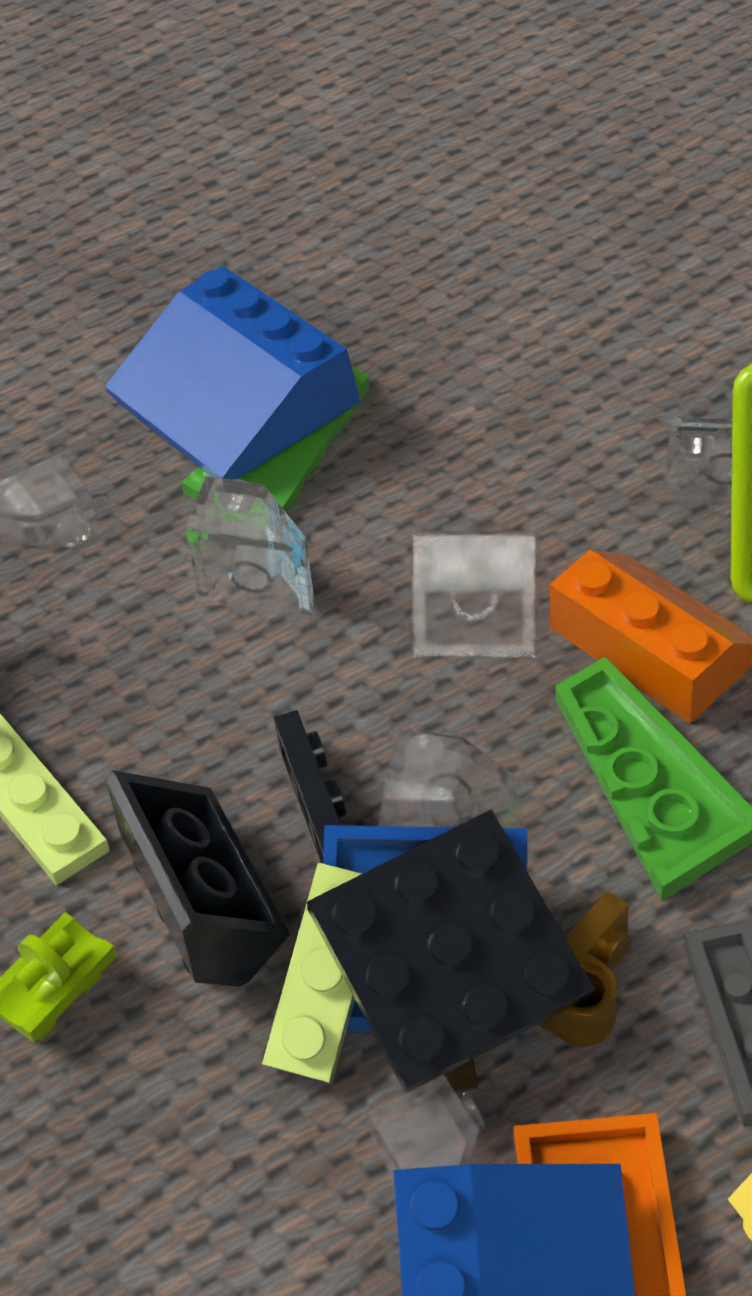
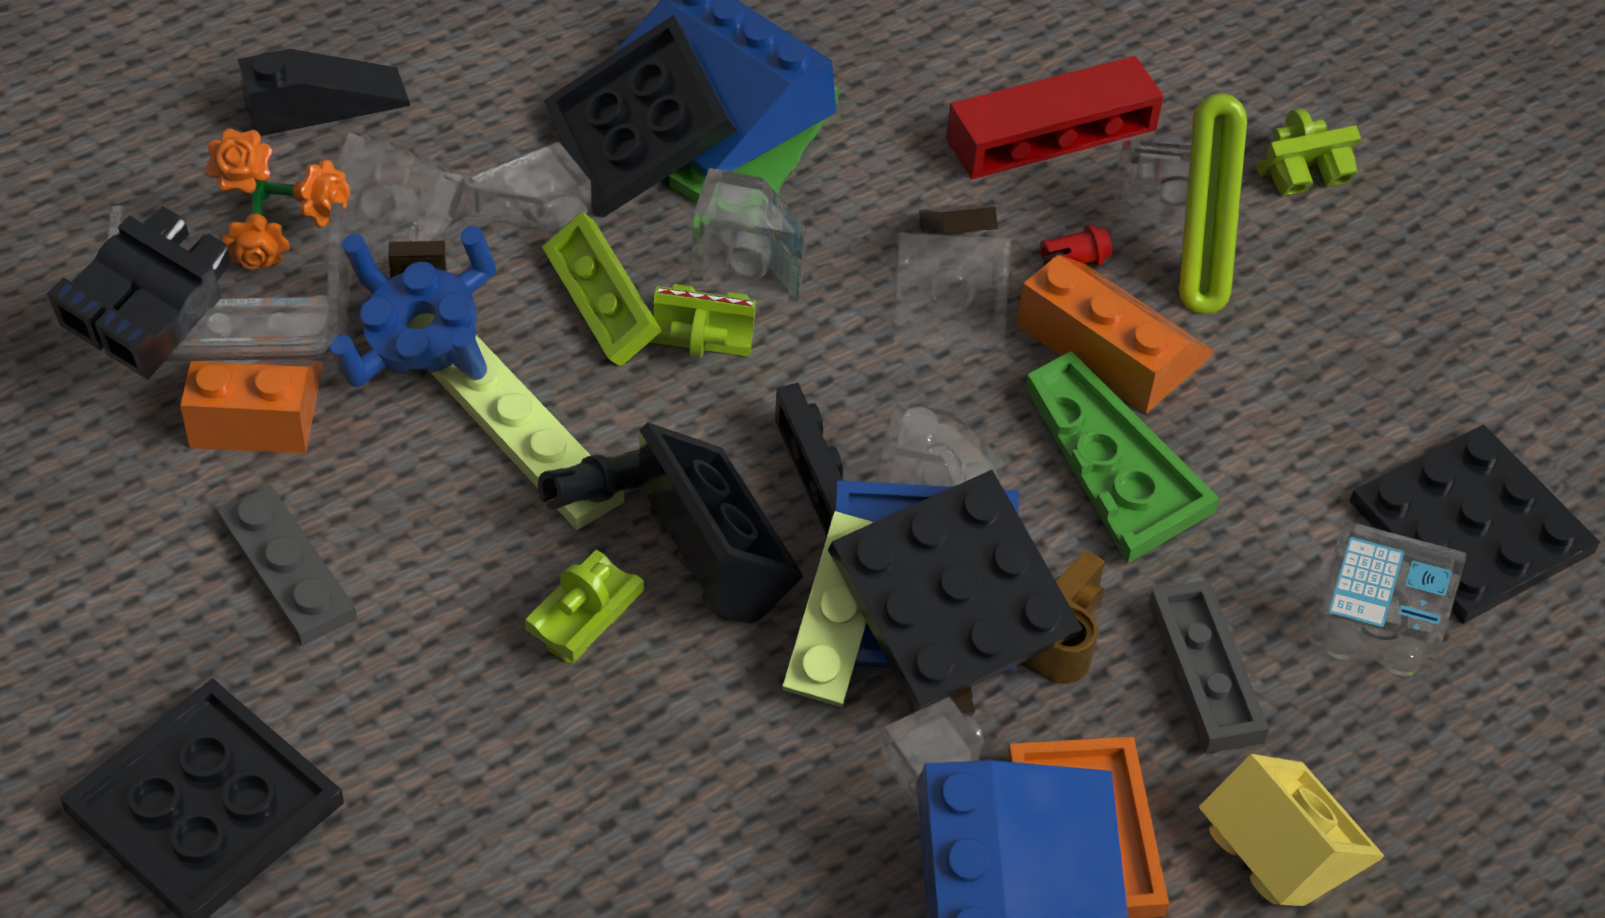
camera: 10 degrees left, 0 degrees up
(65, 832) = (591, 480): none -> black pin
(99, 613) = (601, 289): none -> lime plate
(148, 420) = (639, 115): none -> black plate
(205, 642) = (704, 320): none -> lime hips
(485, 514) = (958, 219): none -> dark brown tile
(598, 392) = (1053, 117): none -> red brick
(623, 536) = (1085, 247): none -> red pin

